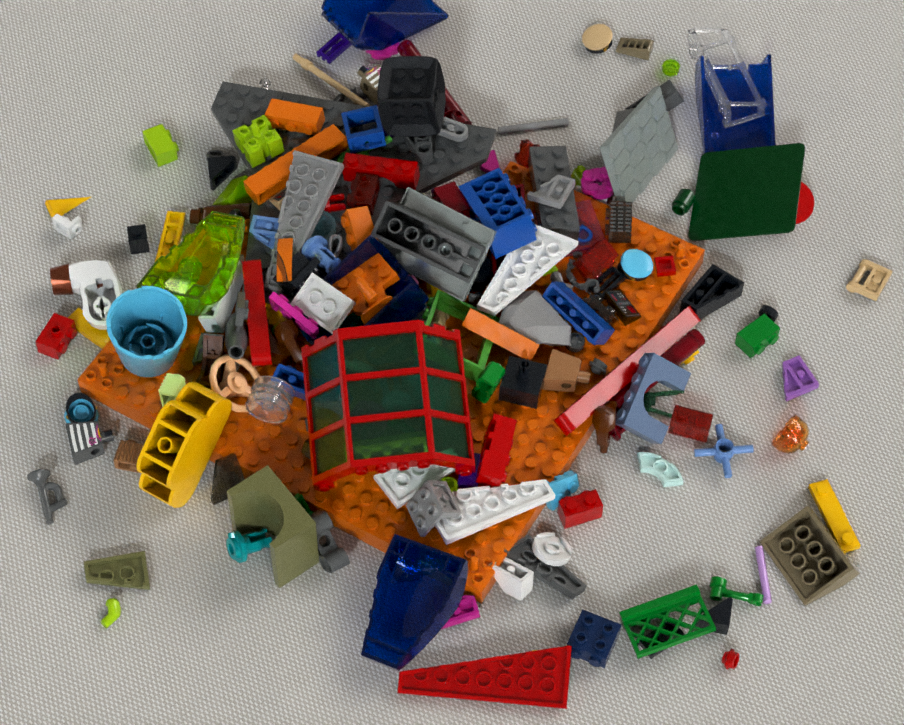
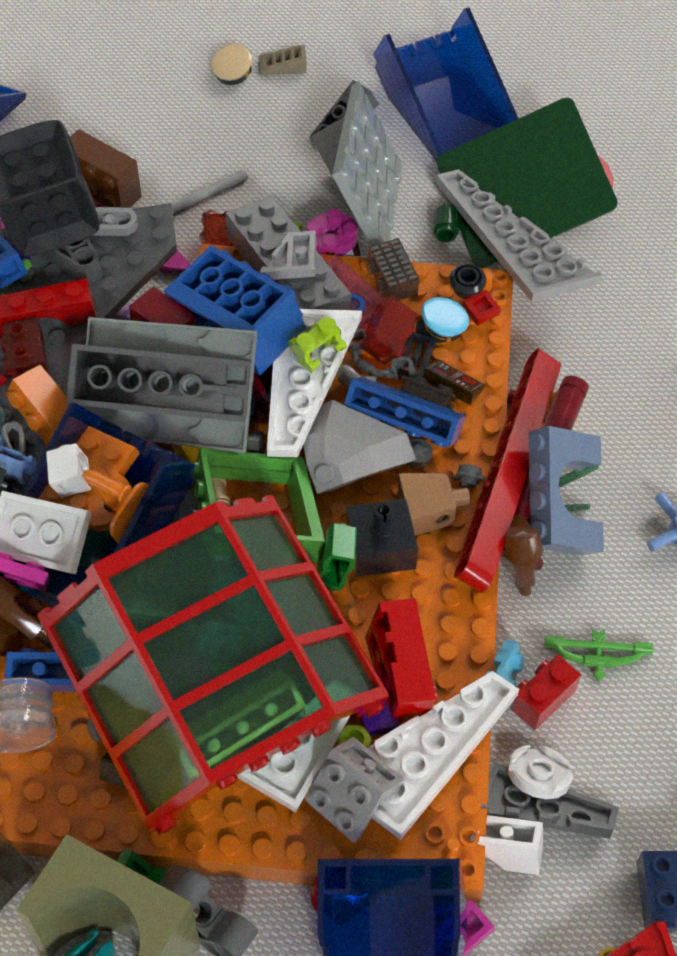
camera: 25 degrees left, 0 degrees up
(350, 271) = (66, 470): none -> white brick
(470, 88) = (108, 172): none -> reddish brown brick
(500, 334) = (321, 480): orange tile -> none
(543, 246) = (323, 332): none -> lime piece
(652, 508) = (598, 642): none -> bright green piece
(659, 467) = (616, 586): light aqua tile -> none
(663, 245) = (467, 280): none -> black cone
(670, 67) = (339, 71): clear neon green tile -> none
(690, 423) = (624, 506): clear red brick -> none
(712, 292) = (552, 322): black wedge -> none
(717, 235) = (518, 244): none -> light grey wing
(724, 105) = (366, 35): clear windscreen -> none
(757, 336) = (636, 358): green brick -> none
(769, 311) = (632, 324): black tile -> none

